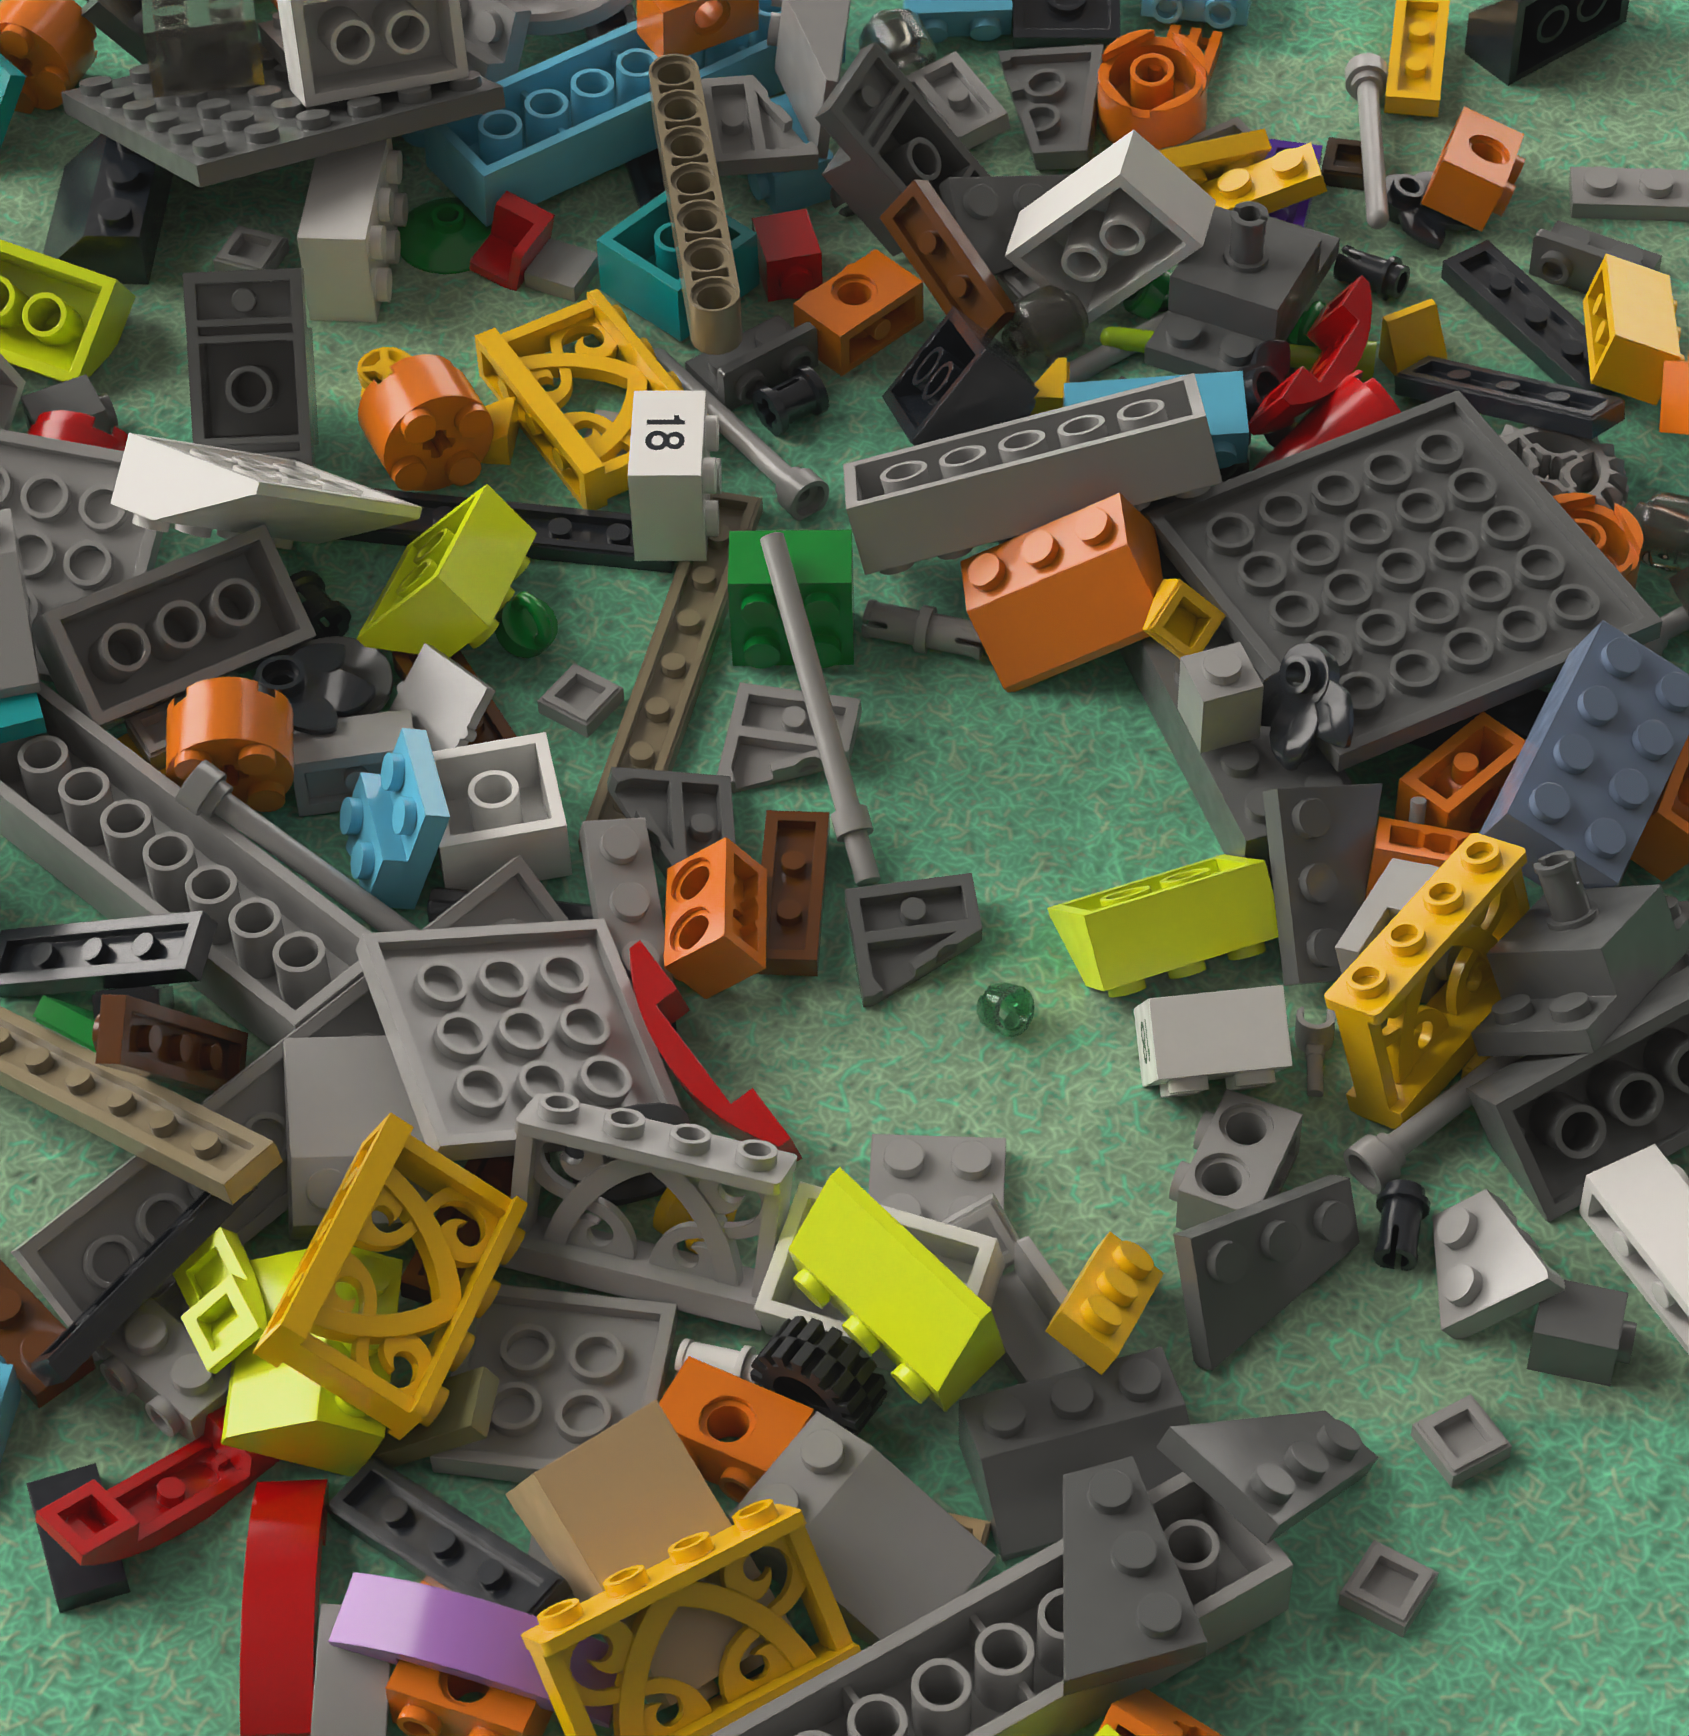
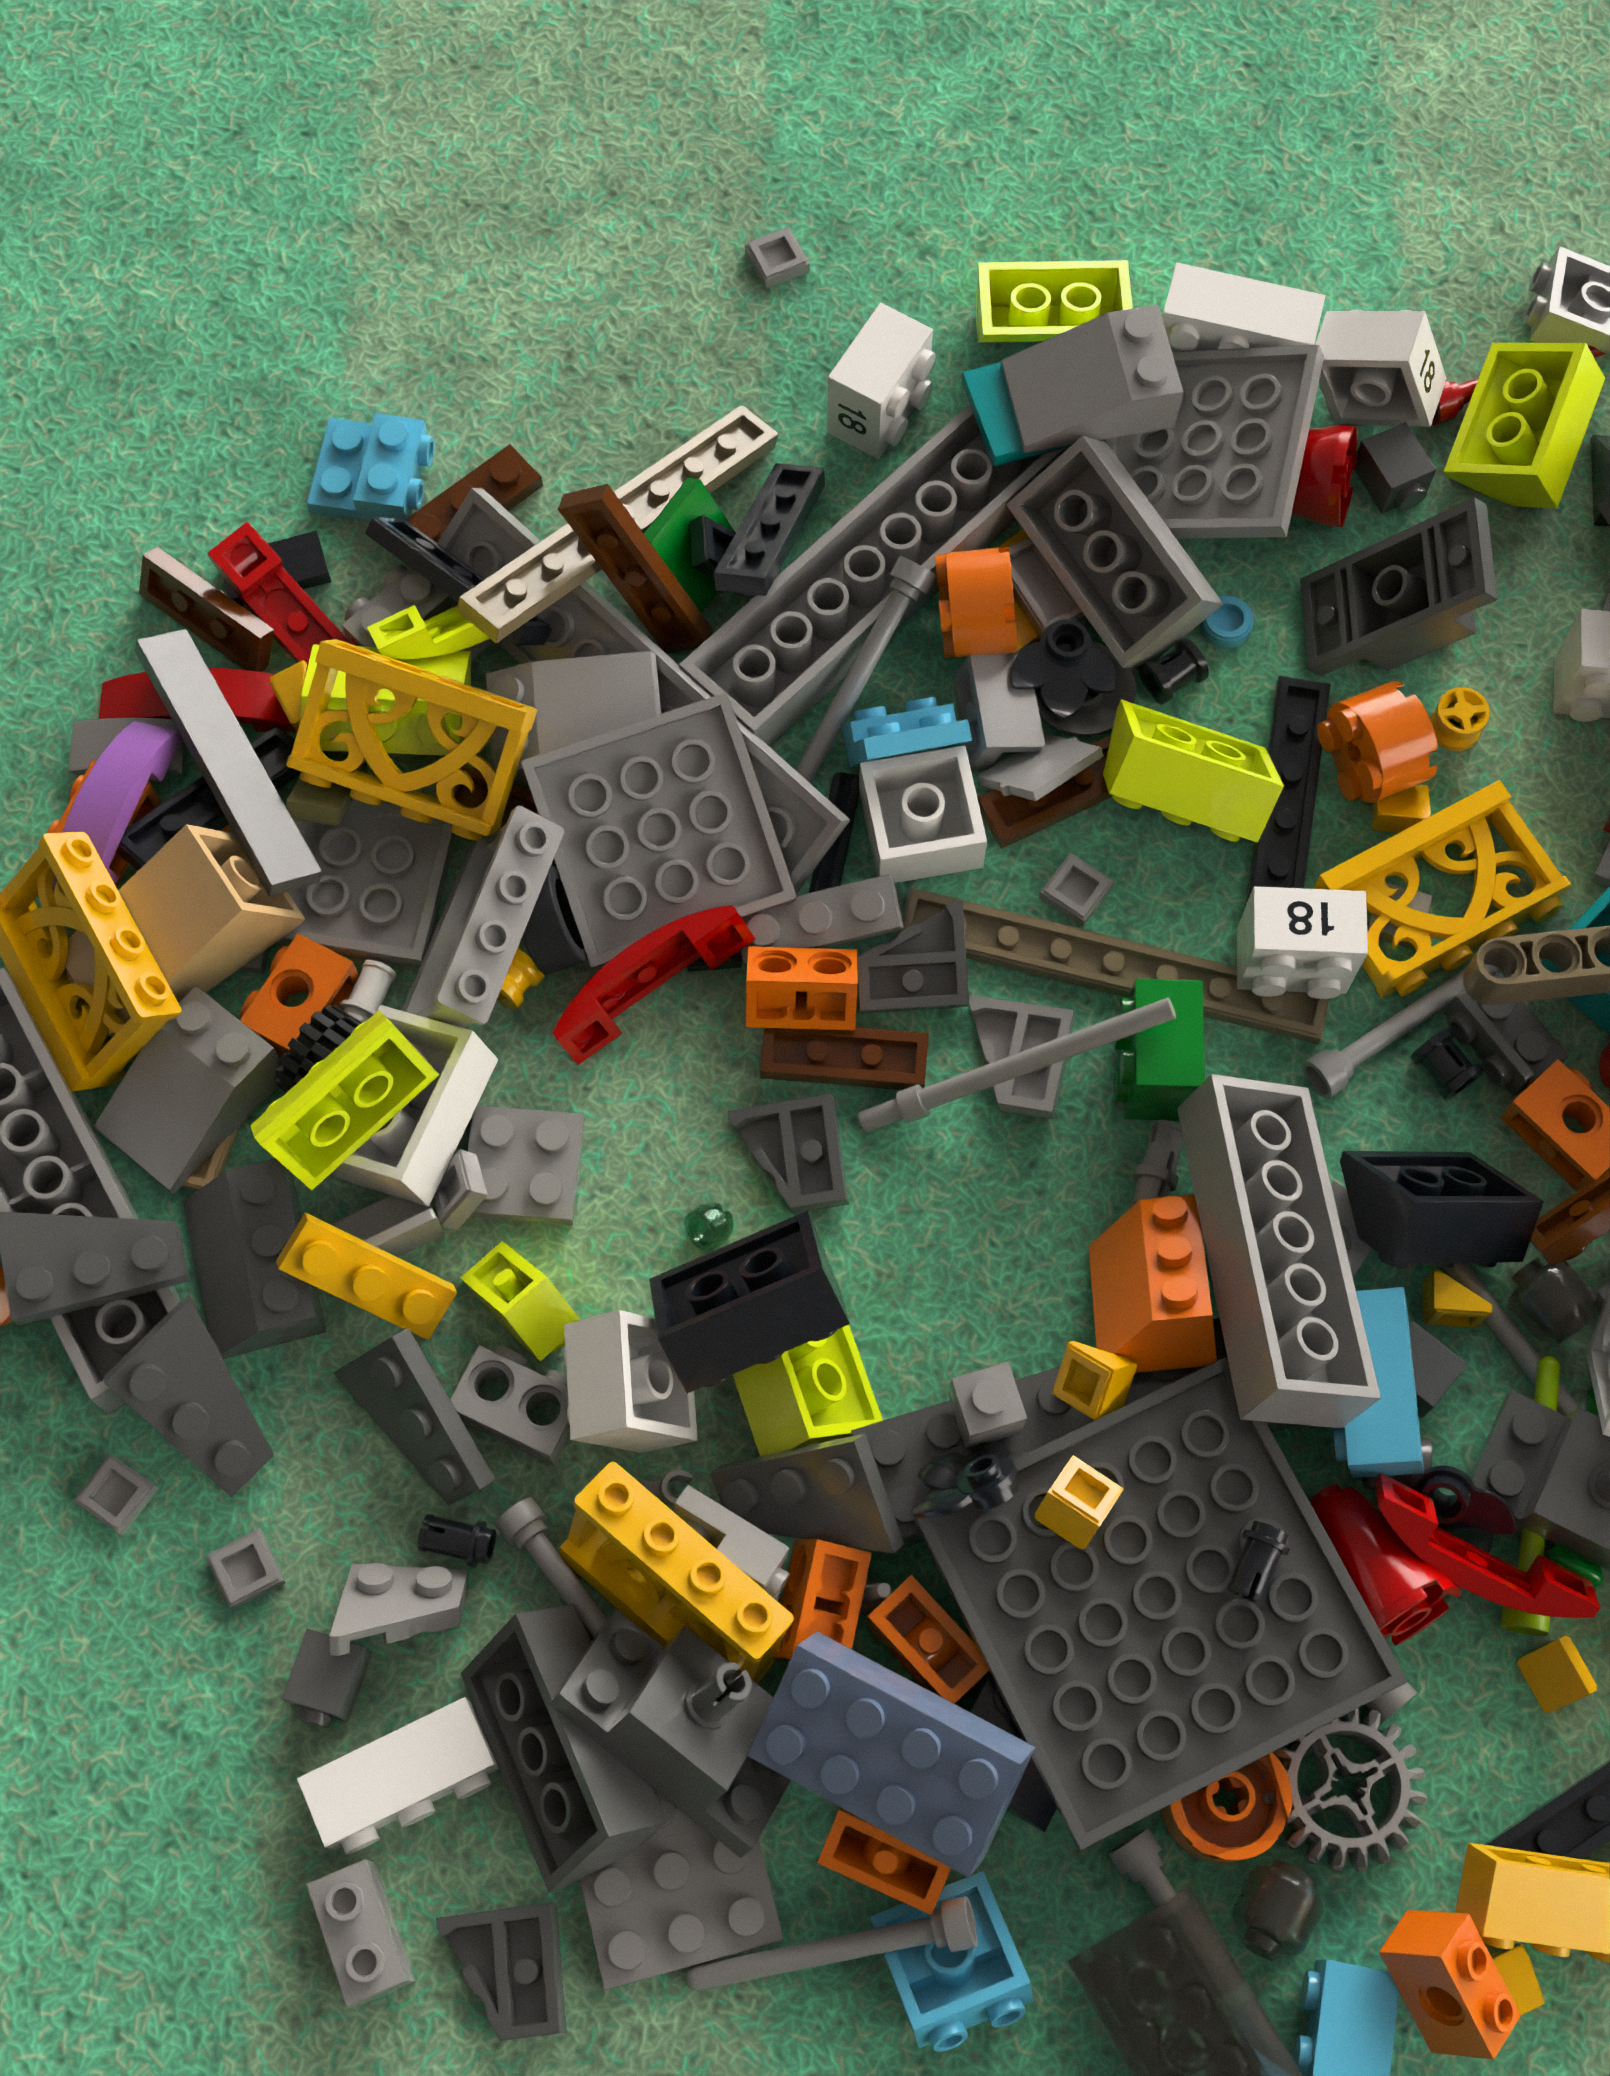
camera: 90 degrees right, 20 degrees up
(145, 1599) = (205, 610): none -> reddish brown plate
(242, 490) = (1243, 592): white slope -> none
(299, 1457) = (288, 689): none -> yellow slope
(398, 1510) = (228, 762): none -> tile
(526, 625) = (1155, 841): green tile -> none
(1108, 1175) = (521, 1300): none -> neon yellow slope
(1120, 899) = (747, 1303): none -> black slope
(1319, 616) = (1077, 1503): none -> yellow slope
(1362, 479) = (1258, 1561): none -> black pin
(1513, 396) = (1455, 1758): black tile -> none

